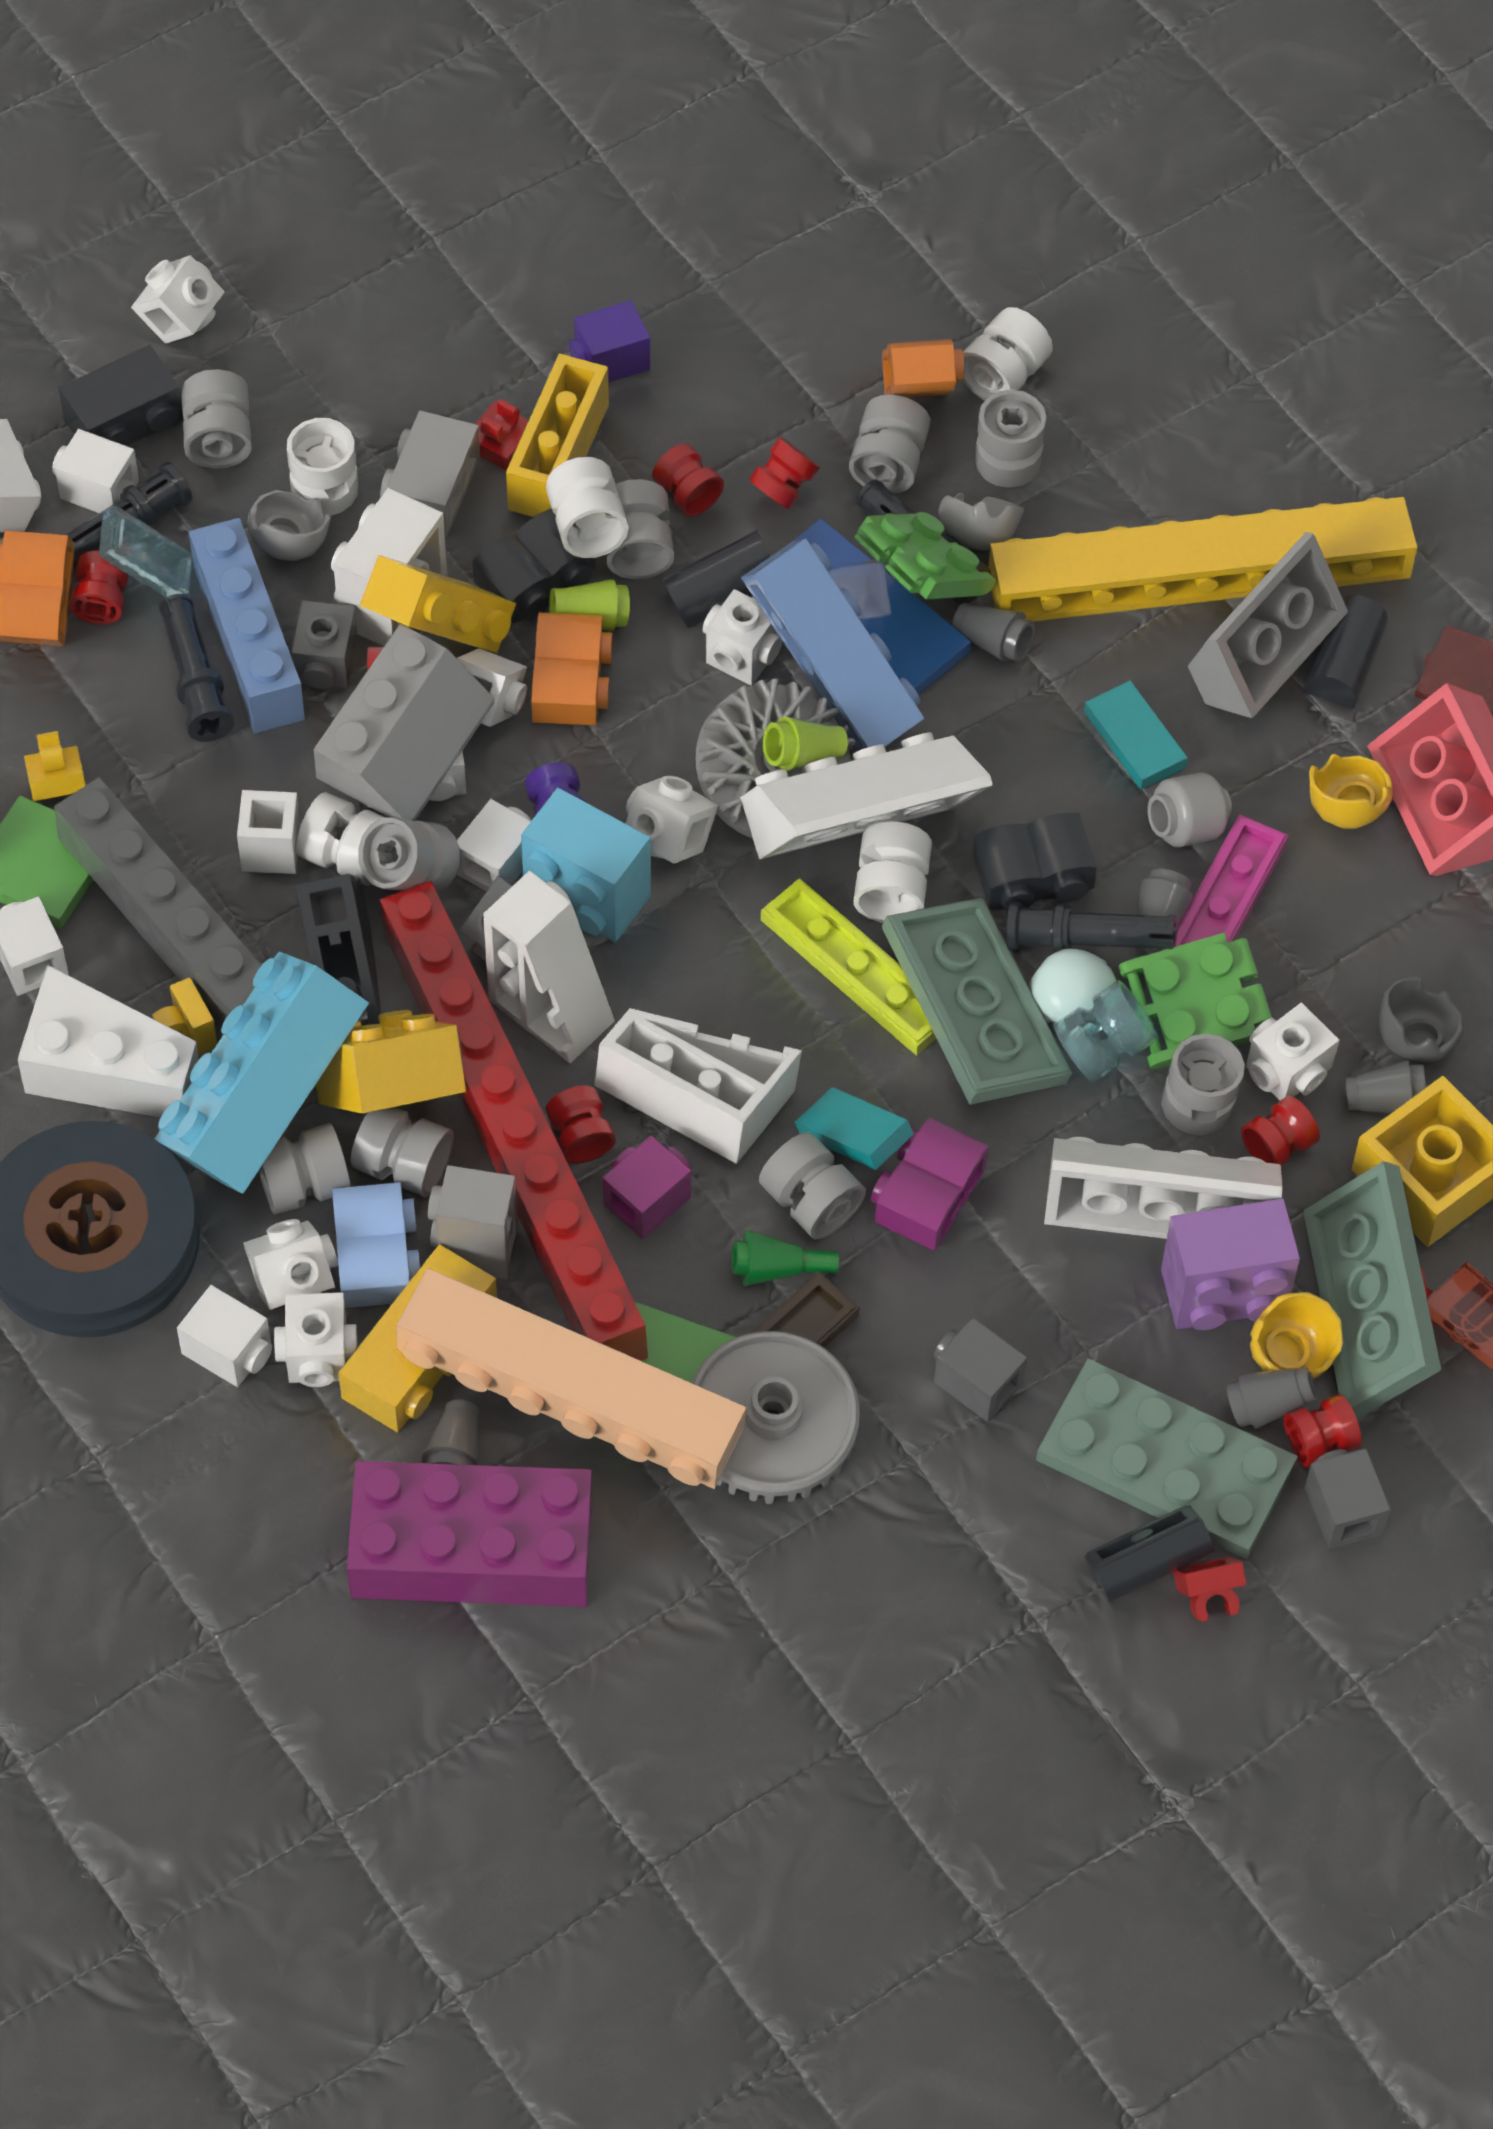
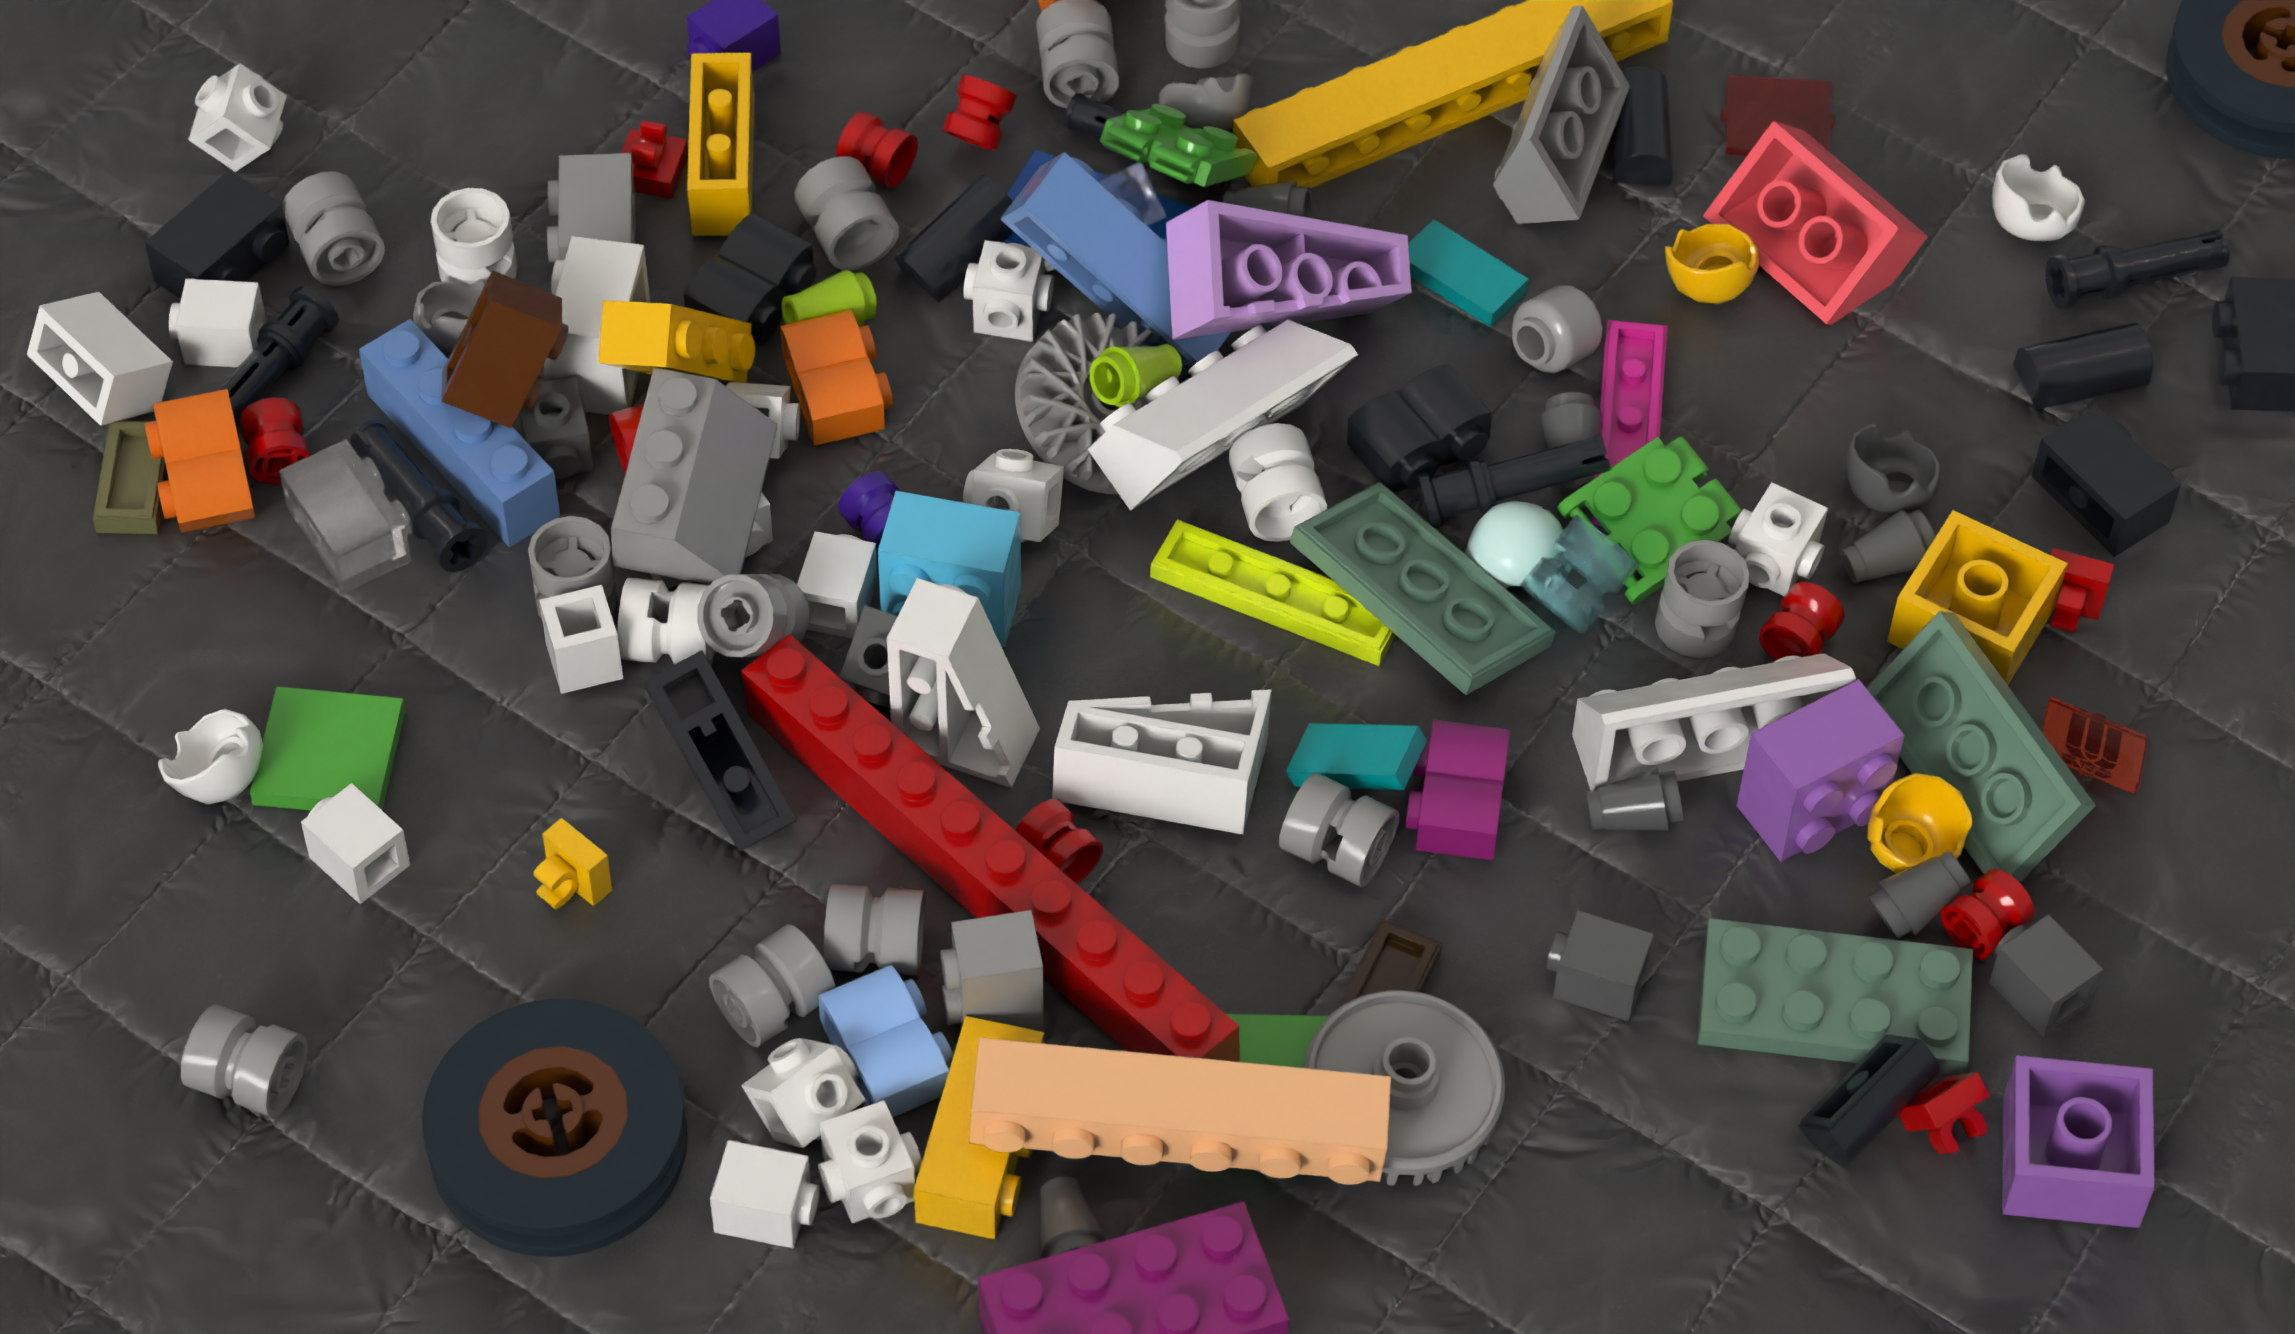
camera: 20 degrees left, 5 degrees down
(54, 769) = (305, 646): yellow tile -> none
(102, 1051) = (497, 930): white wedge -> none
(130, 668) = (347, 515): none -> clear brick
(144, 553) = (315, 387): clear light blue plate -> none
(156, 897) = (519, 763): dark grey brick -> none
(260, 1070) = (695, 888): medium azure brick -> none
(284, 762) = (569, 557): none -> light grey wheel
(290, 570) = (503, 350): none -> reddish brown brick
(393, 1064) = (827, 838): yellow brick -> none
(587, 507) = (793, 199): white wheel -> none
(647, 1185) = (1158, 886): magenta brick -> none
(767, 1259) = (1320, 923): green cone -> none
(951, 687) = (1267, 267): none -> lavender wedge
(1073, 1241) = (1637, 803): none -> dark grey cone
(1302, 1647) = (2078, 1141): none -> medium lavender brick

